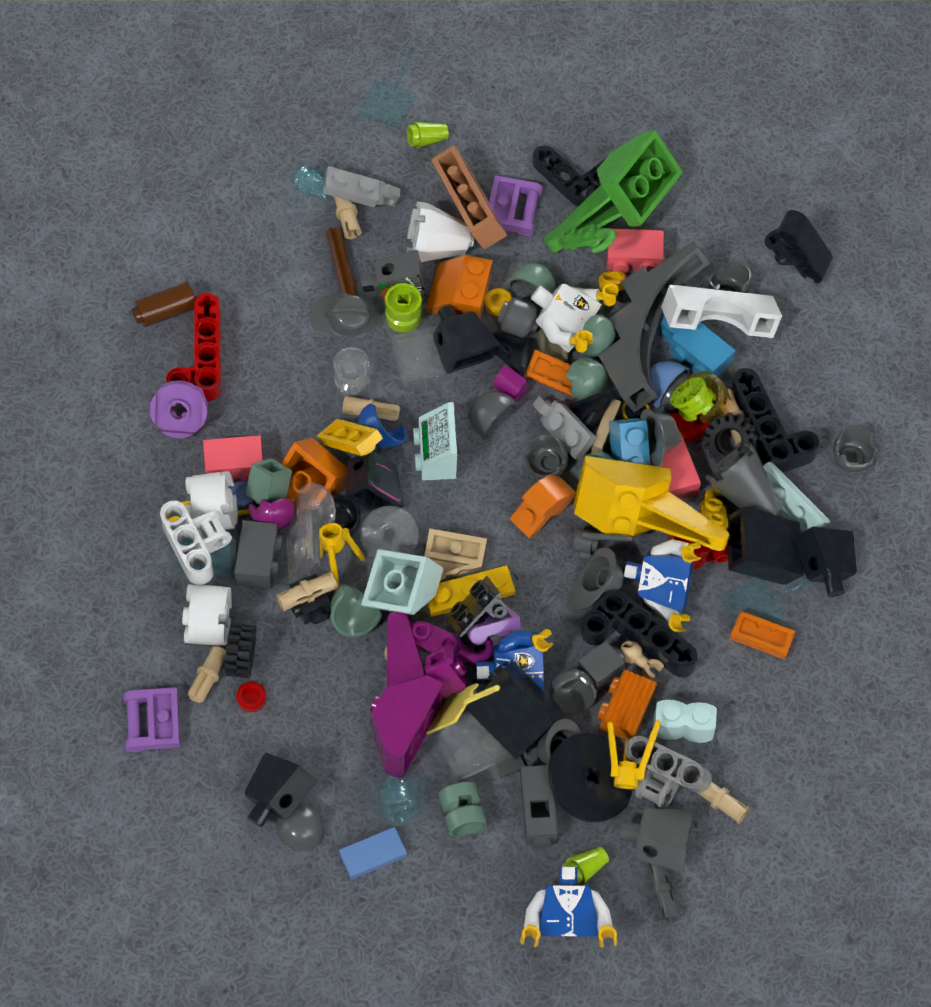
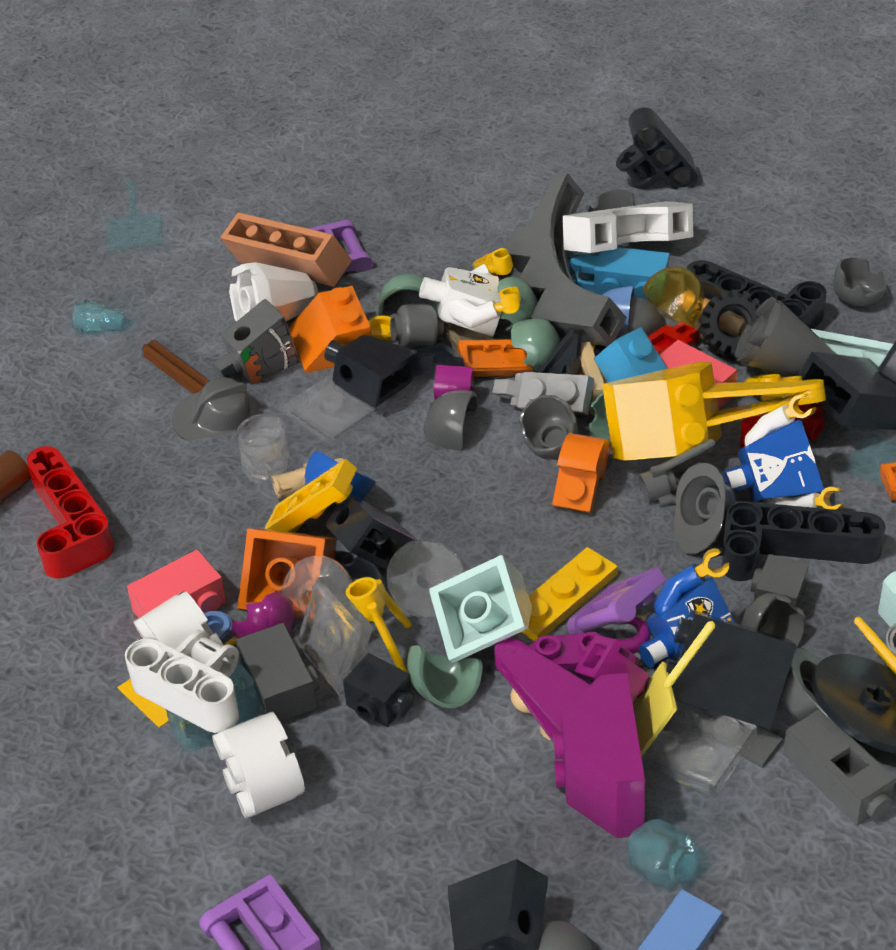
camera: 25 degrees left, 20 degrees down
(167, 419) = (62, 592): medium lavender plate -> none
(207, 674) = (301, 839): tan axle -> none
(240, 650) = (330, 784): black tyre -> none
(251, 697) = (377, 839): red tile -> none
(268, 481) = (237, 585): sand green brick -> none
(306, 591) = (373, 672): tan pin -> none
(347, 213) = (153, 325): tan pin -> none
(359, 188) = (155, 296): light grey hinge -> none
(403, 307) = (281, 369): lime wheel -> none
(425, 134) = (195, 232): lime cone -> none
(437, 444) = (418, 464): light aqua slope -> none
(455, 552) = (529, 553): tan wing -> none
(461, 805) = (746, 814): sand green wheel -> none
(482, 598) = (592, 587): black hinge -> none
(576, 181) = (385, 211): black beam -> none
(627, 705) = (838, 600): orange brick -> none
(633, 654) = (831, 567): tan arm -> none
(634, 181) = (448, 168): bright green slope -> none
(635, 249) = (488, 227): coral brick -> none
(662, 434) = (667, 336): dark grey piece -> none
(692, 398) = (666, 302): lime wheel -> none

